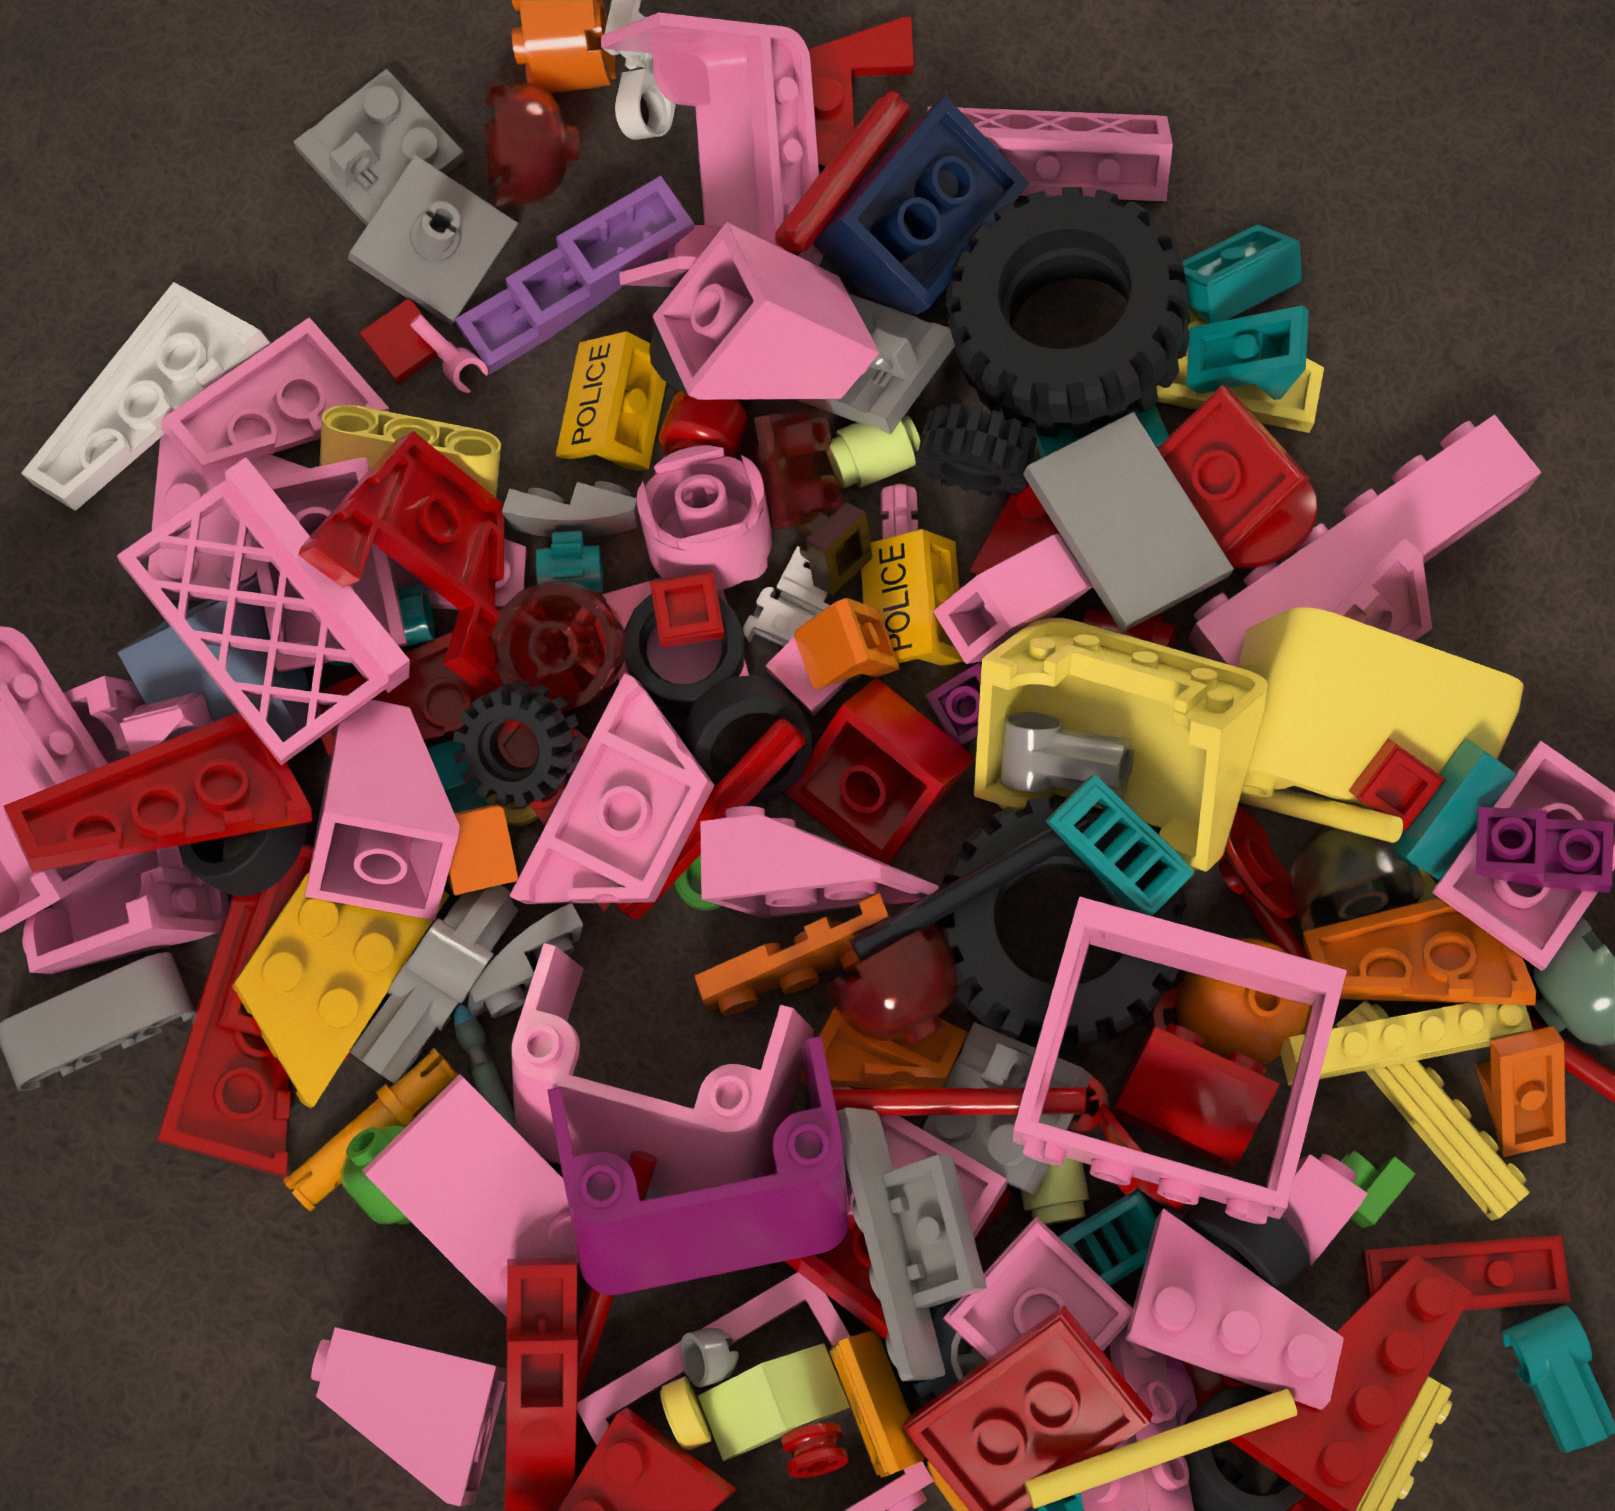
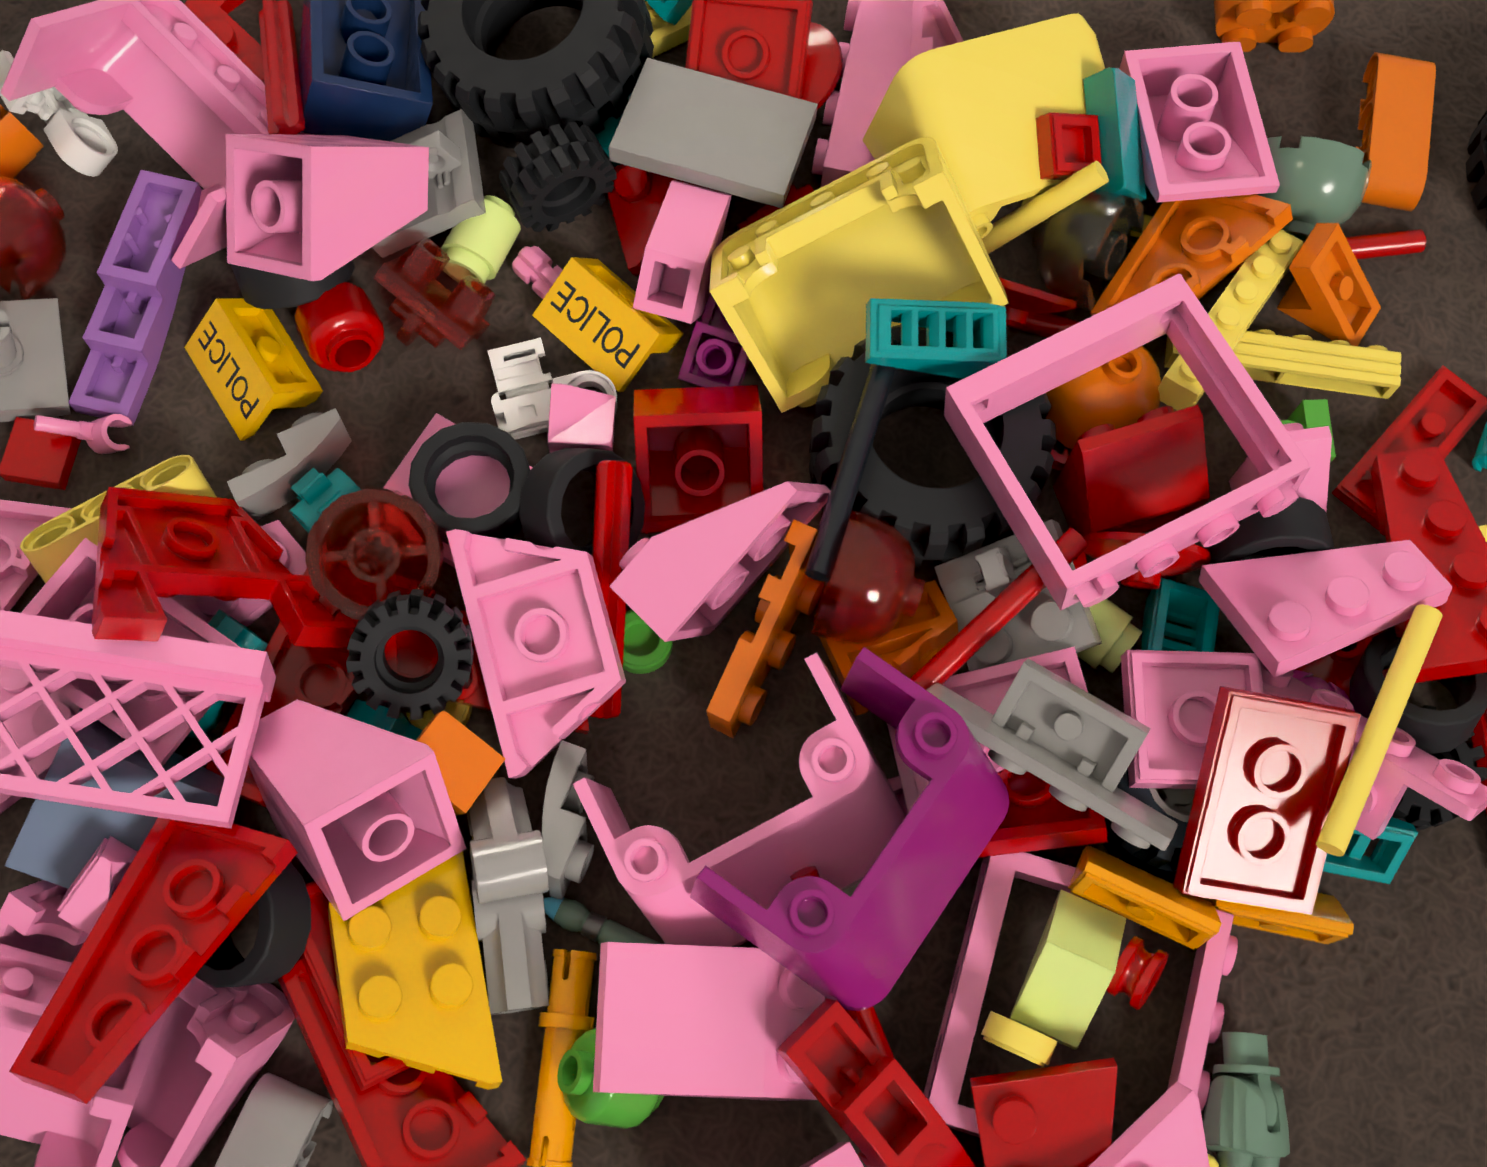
camera: 45 degrees left, 5 degrees down
(687, 609) = (450, 448): red tile -> none
(706, 516) = (401, 379): bright pink brick -> none
(707, 1356) = (985, 992): light grey hinge -> none
(835, 546) = (519, 321): dark brown tile -> none
(845, 643) = (591, 376): orange slope -> none
(1045, 755) = (809, 334): light grey piece -> none
(1544, 851) = (1204, 111): magenta slope -> none

